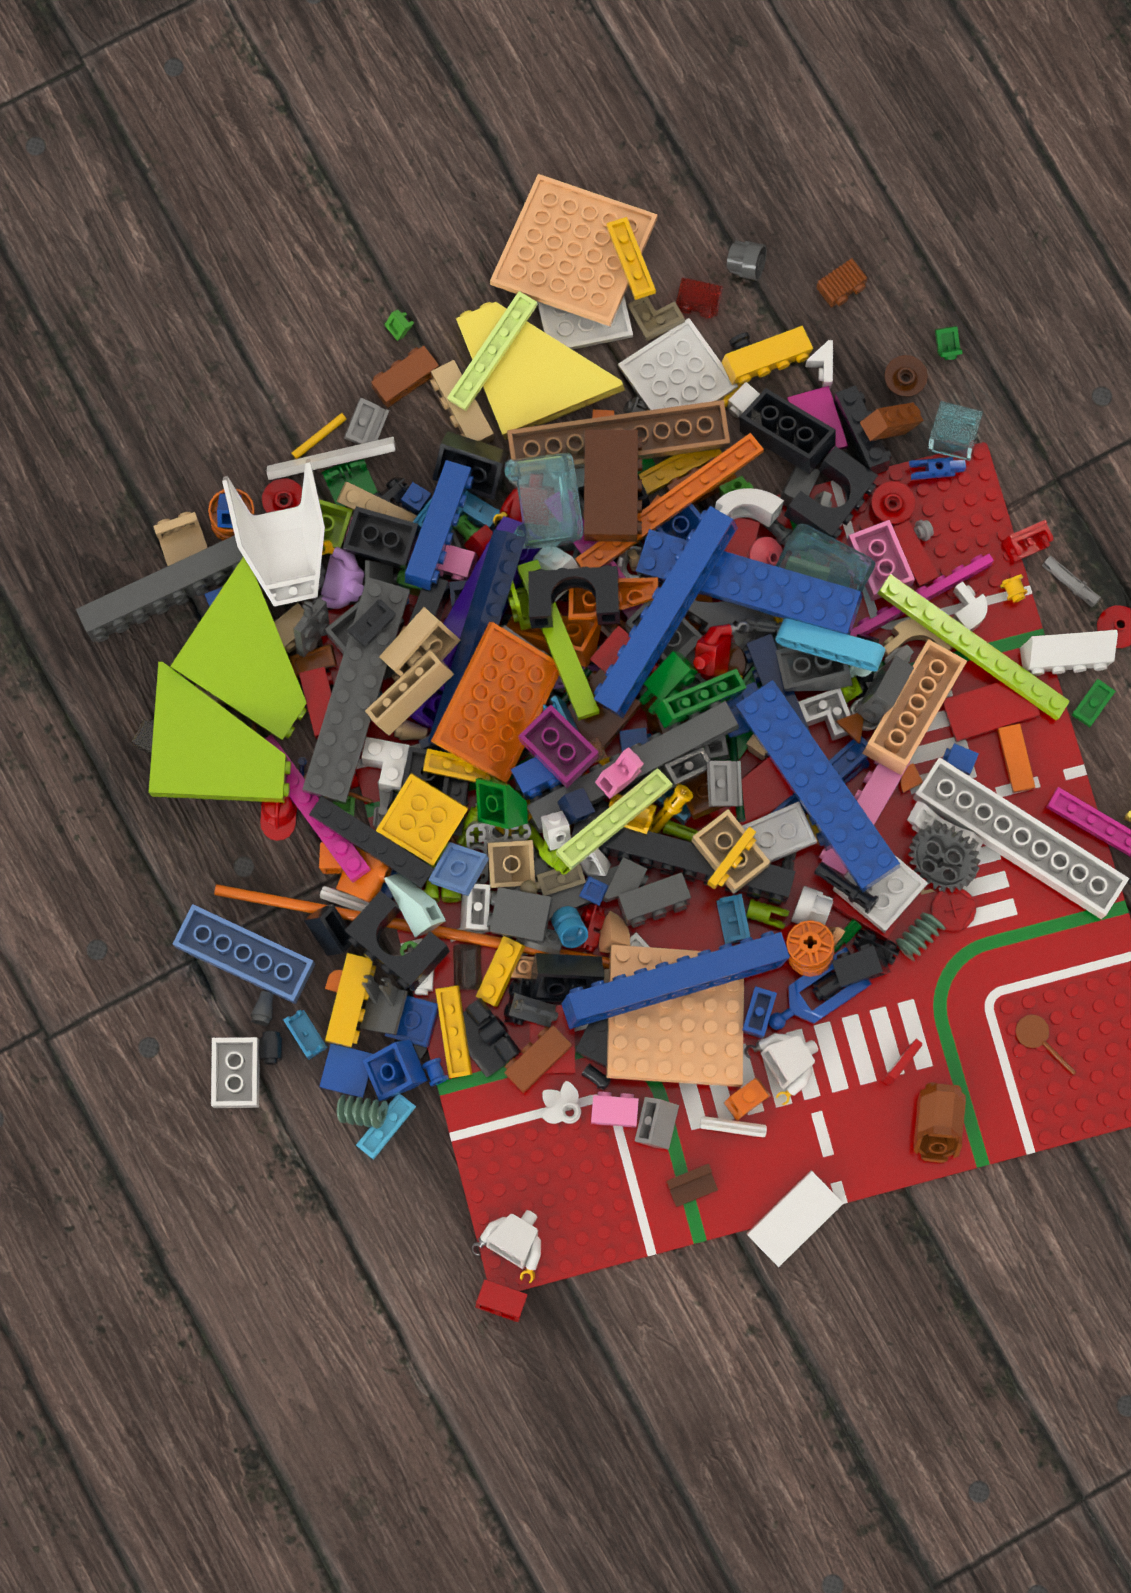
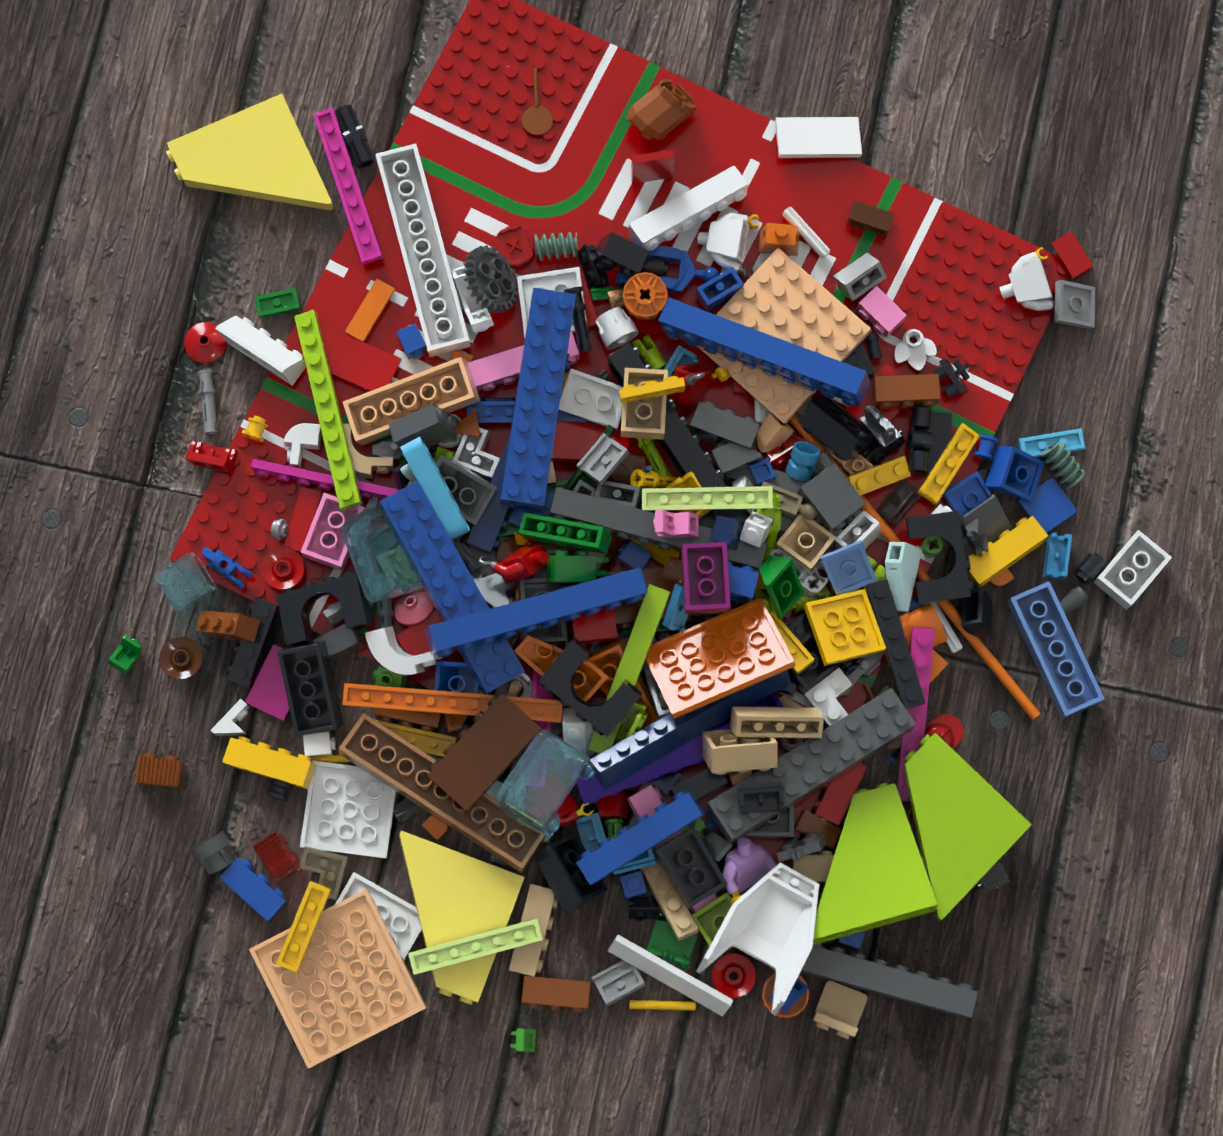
camera: 140 degrees left, 0 degrees up
(464, 1258) = (1074, 304): none -> light grey plate
(509, 1109) = (956, 386): none -> black hips
(694, 261) = (254, 889): none -> blue brick
(713, 915) = (696, 382): none -> red torso
(842, 1056) = (688, 209): none -> white brick

